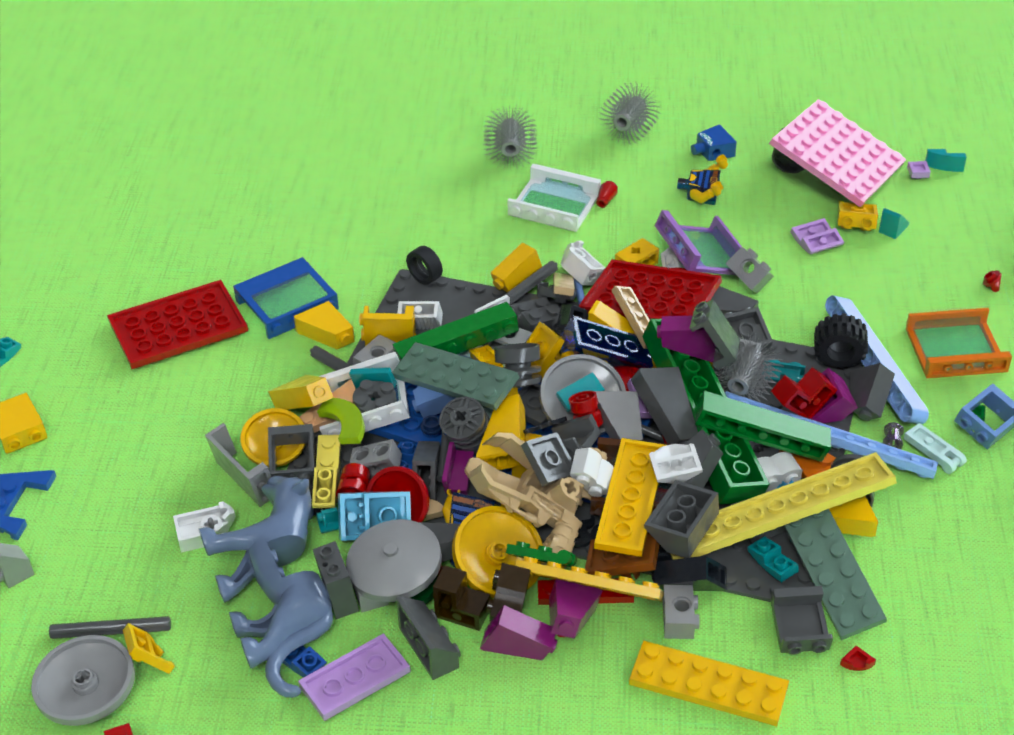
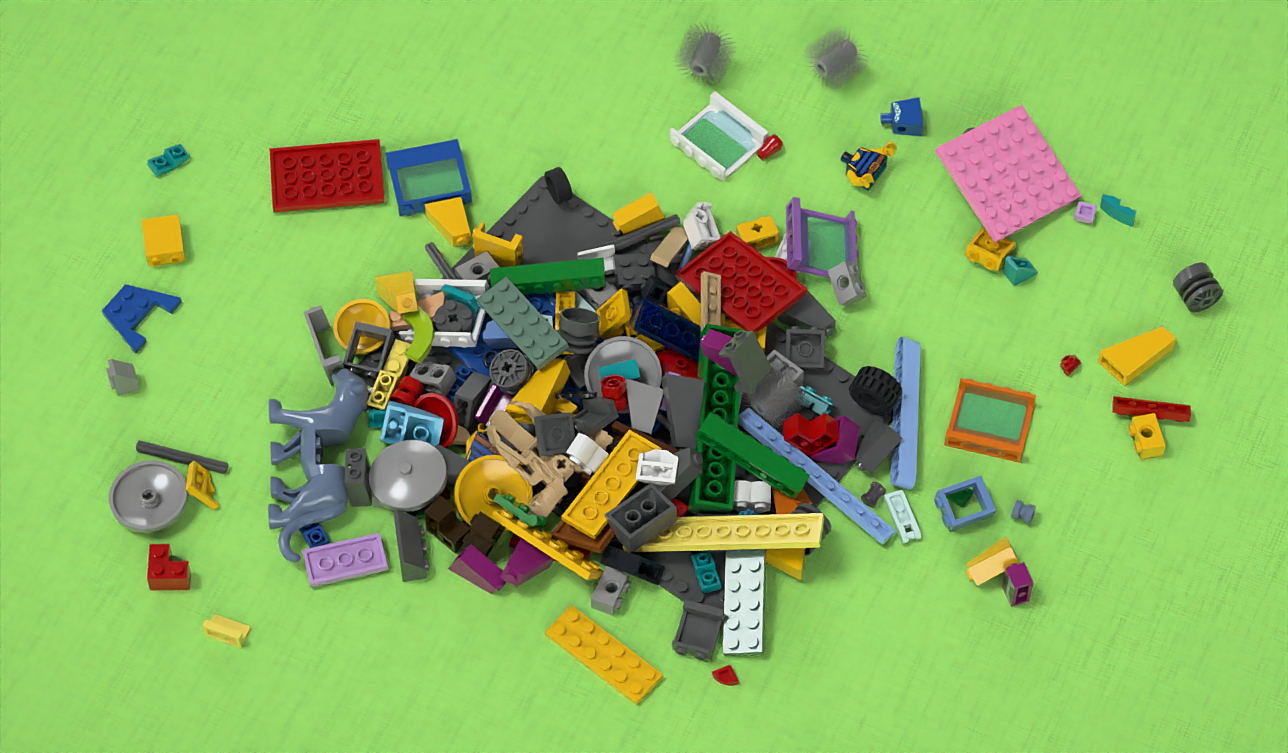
camera: 20 degrees right, 15 degrees up
(188, 524) = (276, 389): white piece -> none
(427, 313) = (533, 240): white brick -> none
(816, 236) = (939, 261): lavender slope -> none

